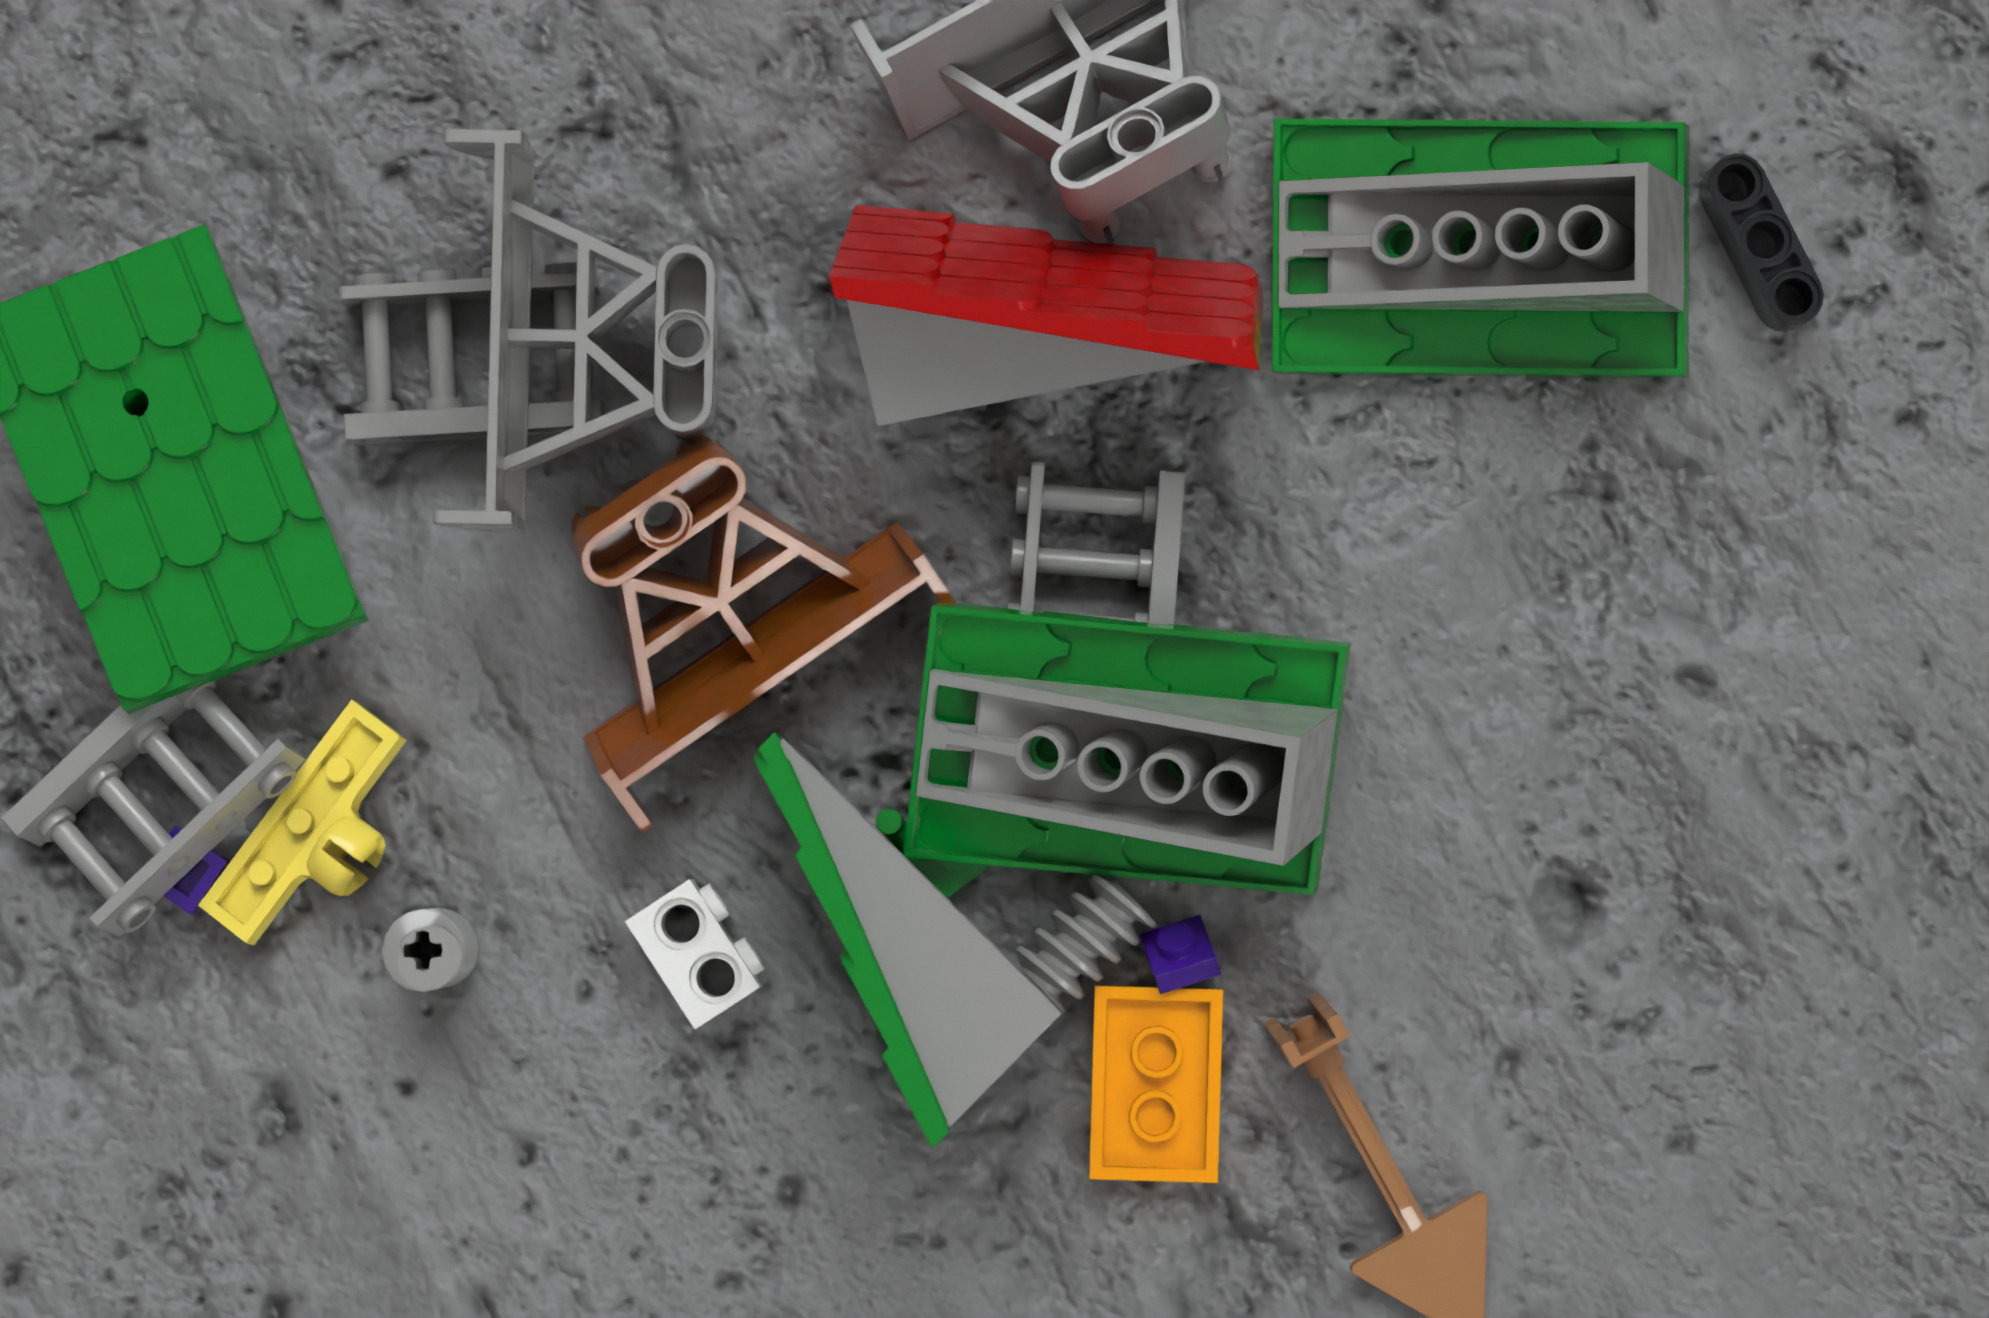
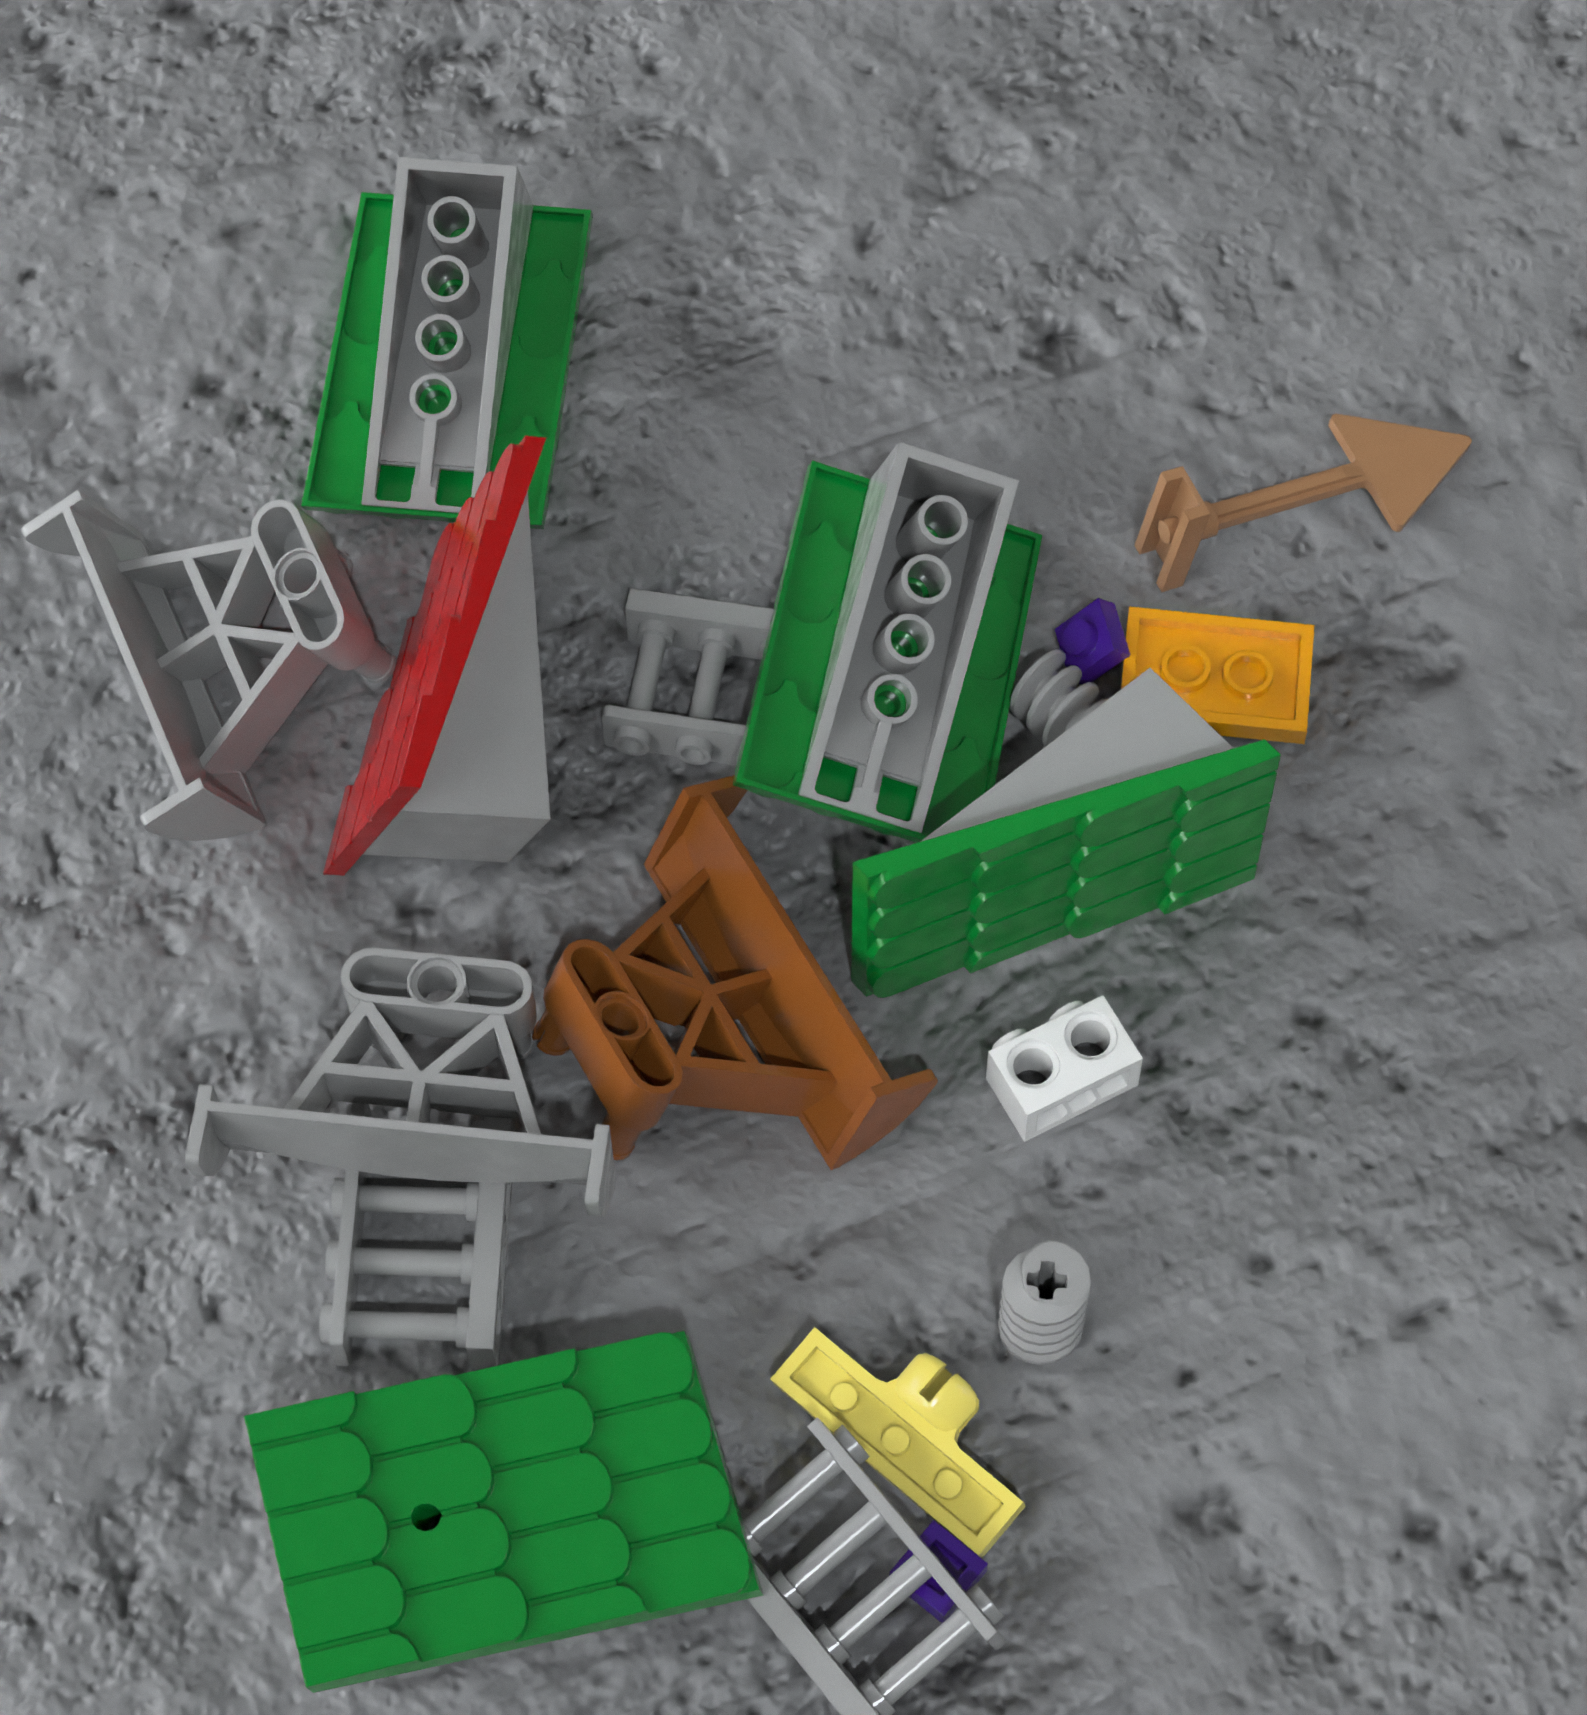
camera: 85 degrees left, 25 degrees down
(1762, 211) = (506, 130): black beam -> none

